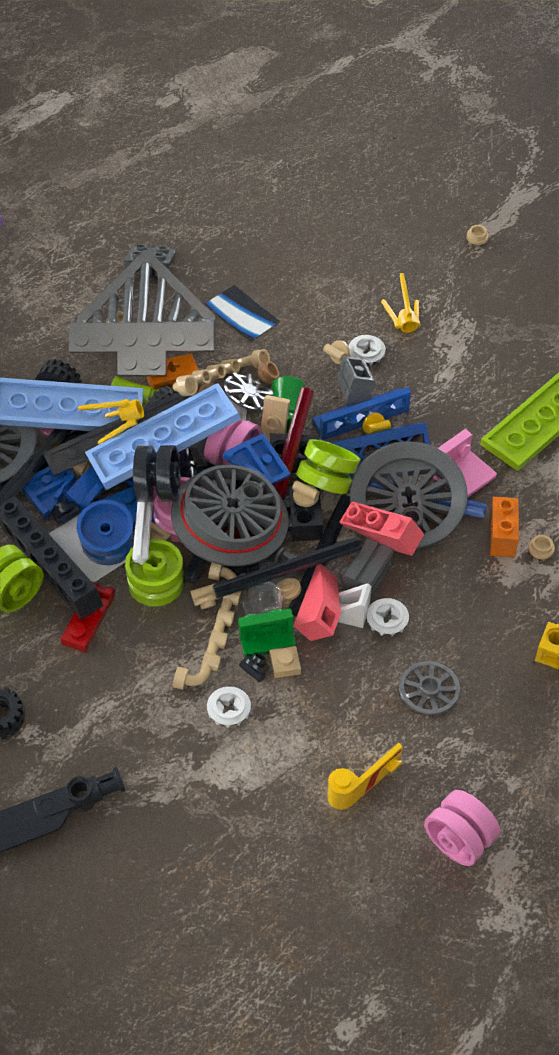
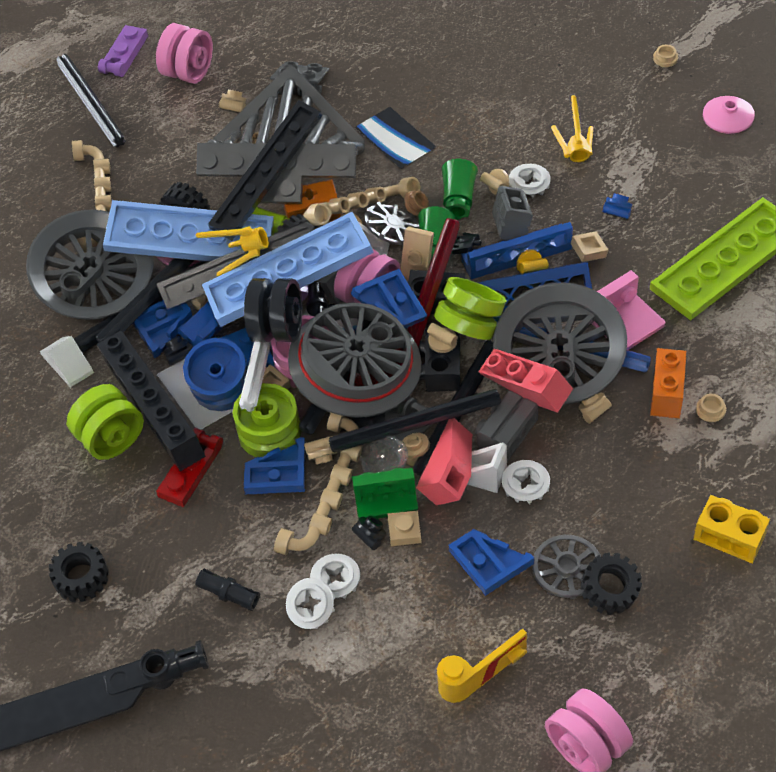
camera: 10 degrees right, 0 degrees up
(42, 238) = (184, 53): none -> bright pink wheel
(90, 282) = (232, 101): none -> tan plate
(134, 722) = (227, 589): none -> black pin
(135, 346) = (265, 168): none -> black plate
(167, 616) = (277, 471): none -> blue wing
(199, 724) = (299, 596): none -> white gear
(304, 356) = (458, 186): none -> green plant
(317, 407) = (466, 243): none -> black piece
(361, 686) = (488, 560): none -> blue wing
(425, 408) = (589, 246): none -> tan plate
(441, 550) = (594, 407): none -> tan plate
(446, 371) = (618, 206): none -> blue plate
(479, 691) = (619, 568): none -> black tyre
(536, 287) = (728, 114): none -> bright pink dish

